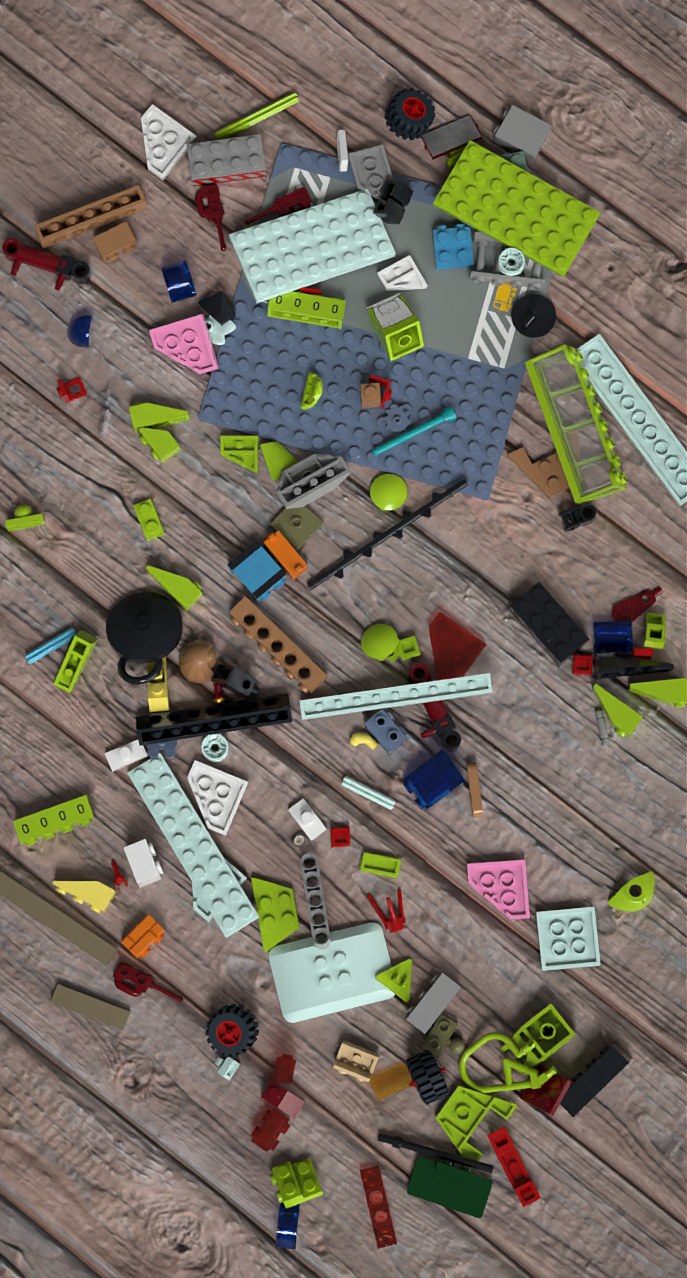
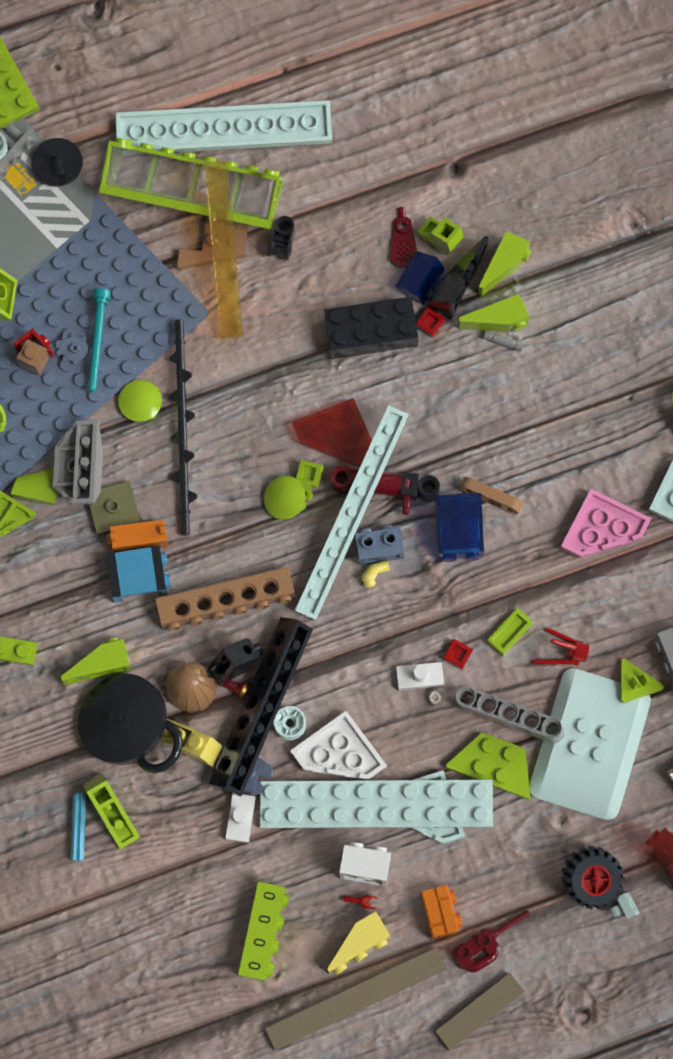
camera: 55 degrees left, 5 degrees down
(368, 792) = (429, 600): light aqua axle -> none
(537, 480) = (224, 249): none -> clear yellow plate
(643, 652) = (455, 257): red tile -> none

